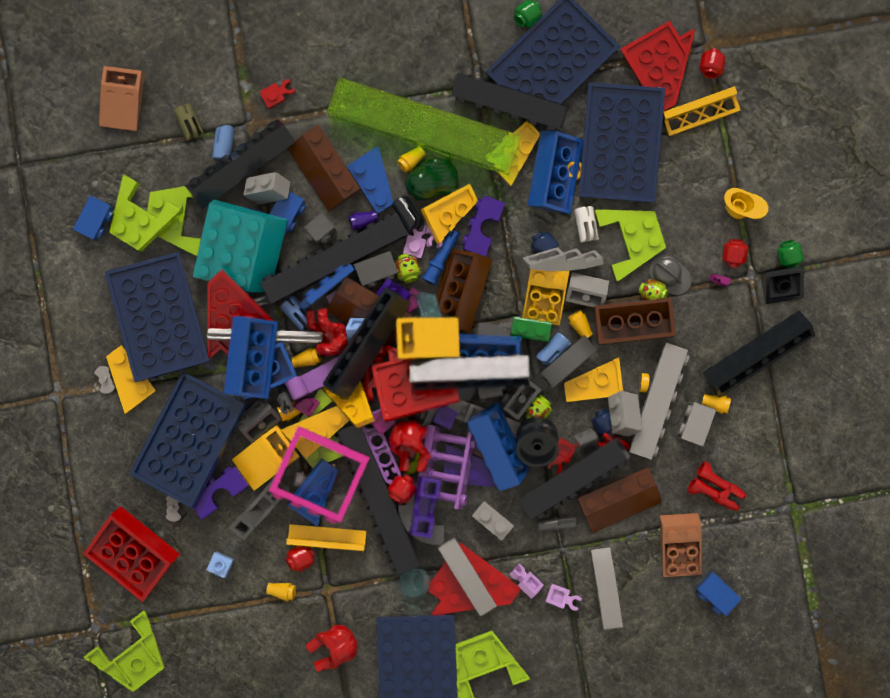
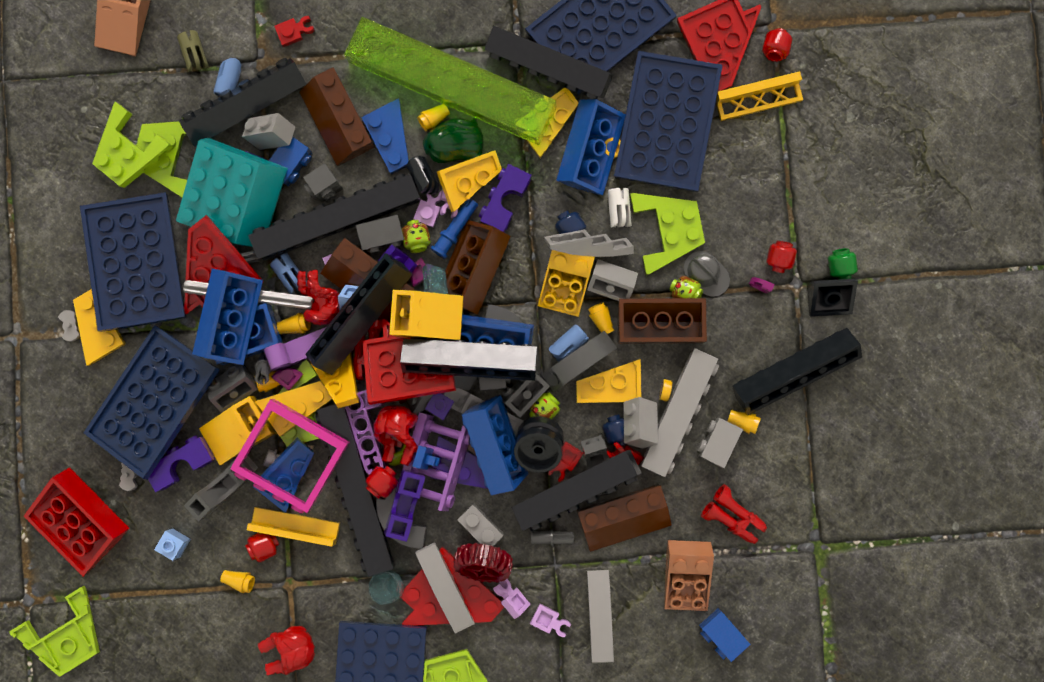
camera: 10 degrees right, 0 degrees up
(93, 218) = (76, 146): blue brick -> none
(326, 284) = (321, 243): blue wing -> none
(360, 220) = (369, 178): dark purple cone -> none
(379, 423) = (365, 408): magenta tile -> none
(437, 464) = (424, 458): none -> blue tile
(498, 551) = (483, 562): none -> dark red gear
(531, 329) = (545, 318): green brick -> none
(744, 204) = (797, 203): yellow piece -> none

